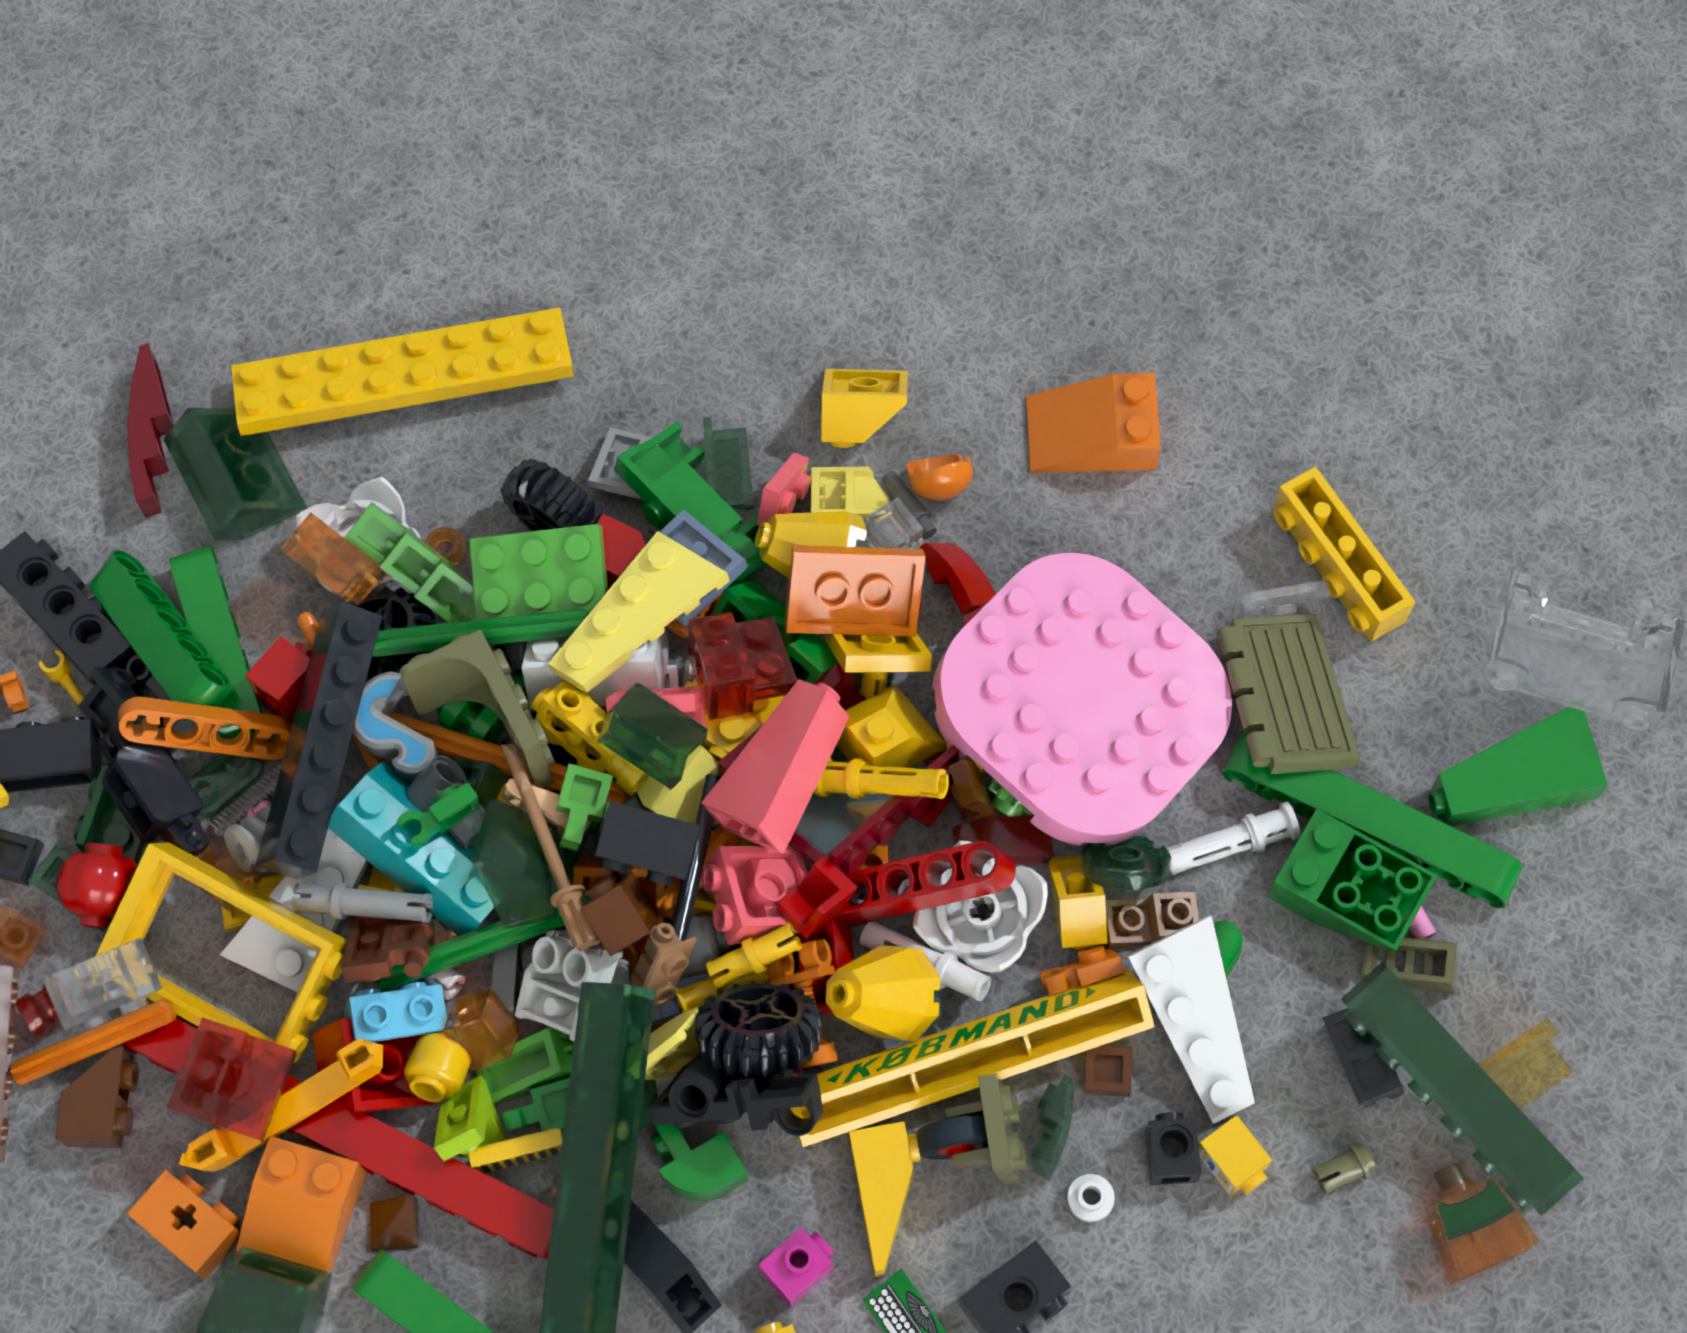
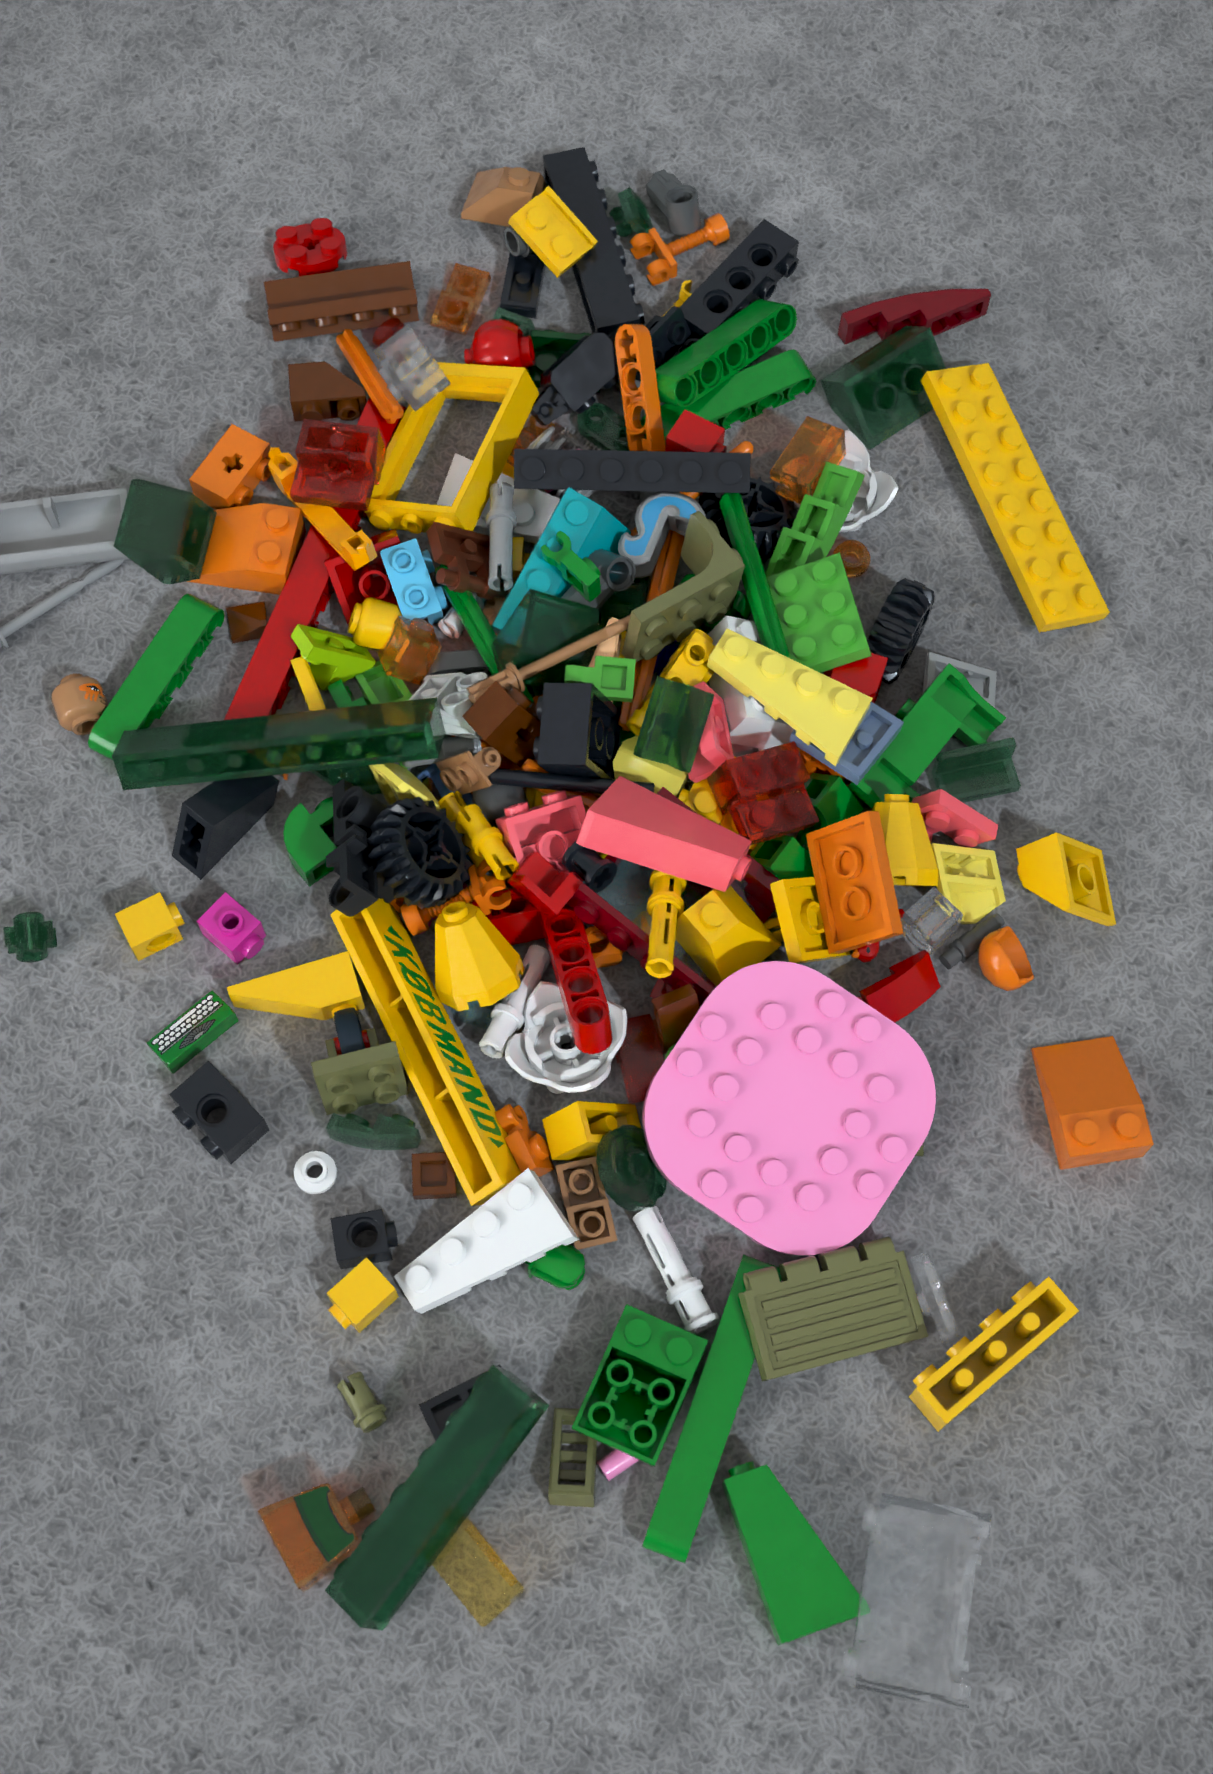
camera: 80 degrees right, 0 degrees up
(804, 848) = (589, 866): none -> black bush

